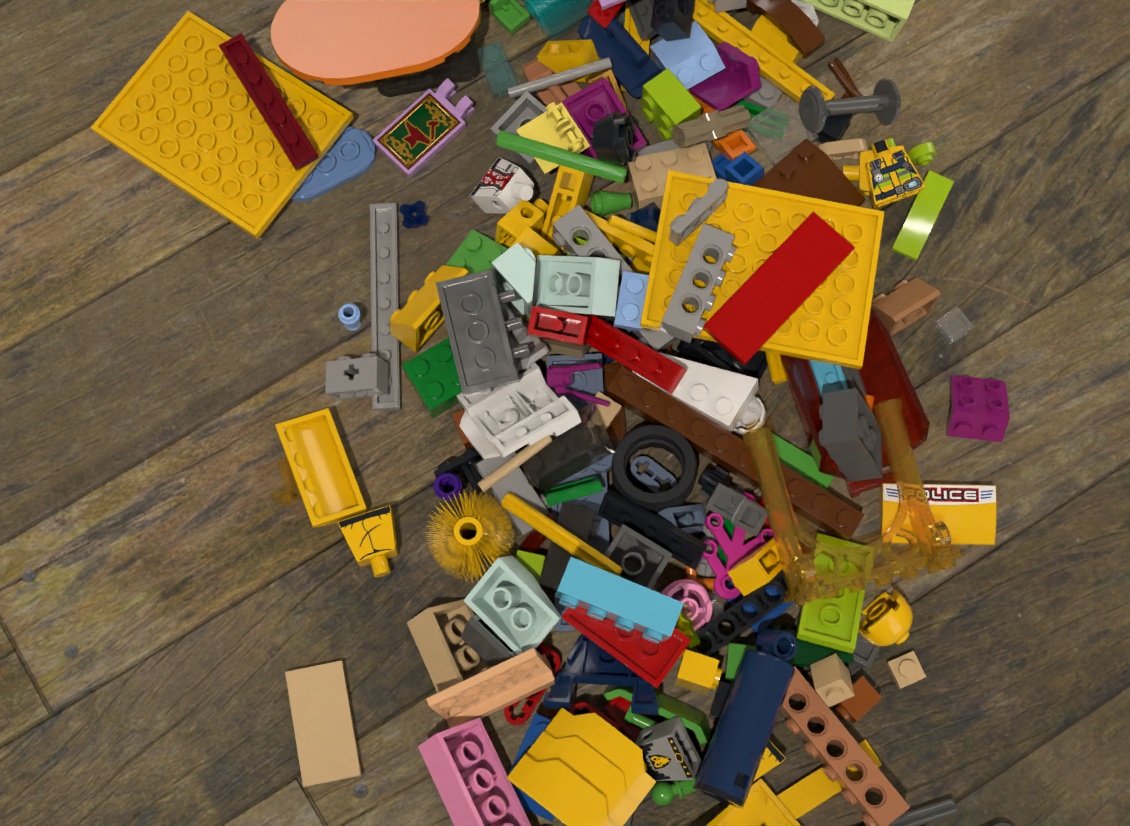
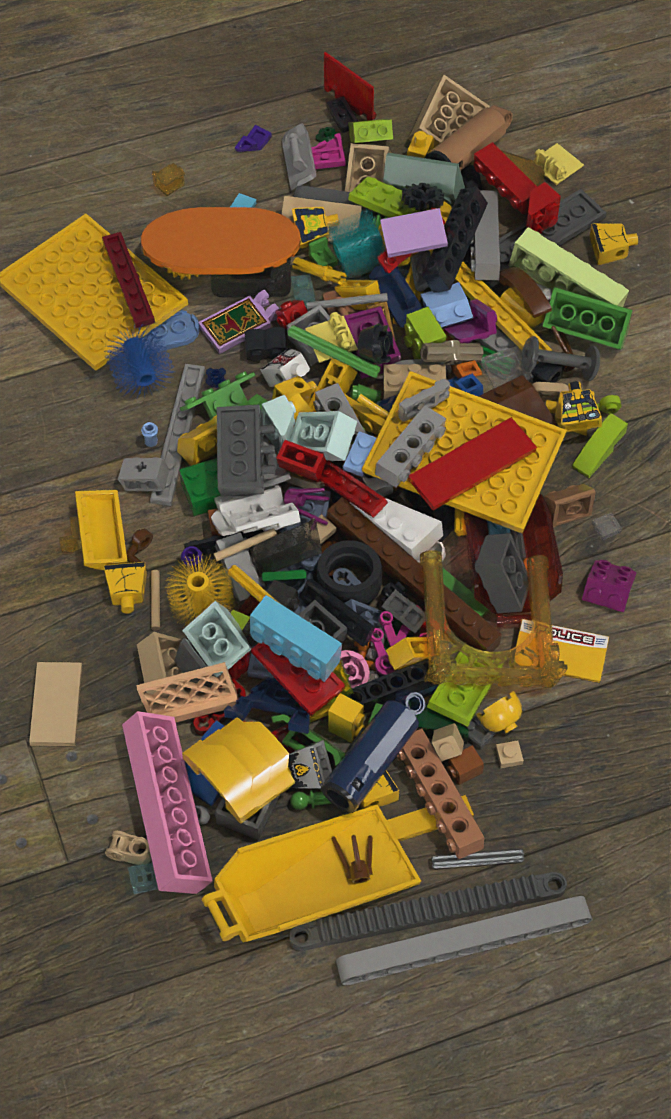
camera: 10 degrees right, 15 degrees down
(312, 220) = (139, 361): none -> blue piece
(375, 470) = (140, 541): none -> reddish brown plate
(413, 549) = (155, 600): none -> tan bar
(430, 246) = (226, 395): none -> bright green bracket
(466, 155) = (264, 343): none -> black brick
(490, 106) = (289, 312): none -> red brick
(520, 38) = (326, 273): none -> yellow pin
(872, 41) = (588, 318): none -> bright green slope

